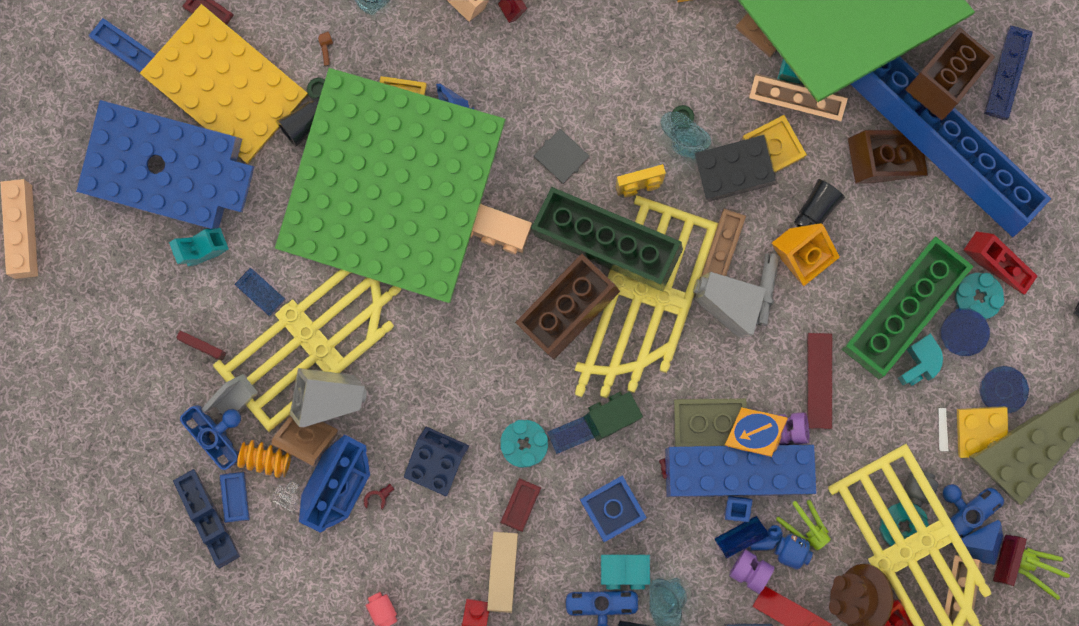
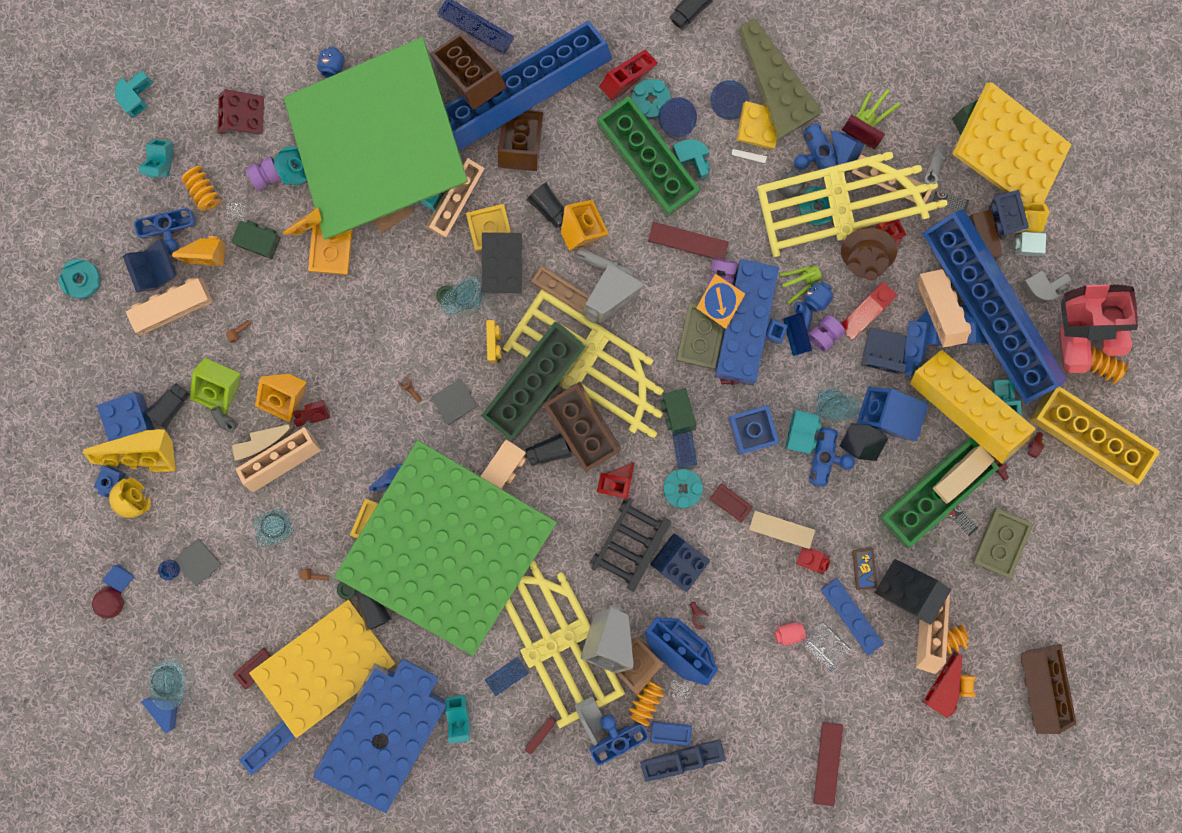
camera: 80 degrees left, 5 degrees up
(450, 420) = (641, 561): none -> black fence
(513, 365) = (617, 481): none -> red slope
(530, 275) = (548, 450): none -> black plant
(565, 101) = (409, 388): none -> dark orange hand

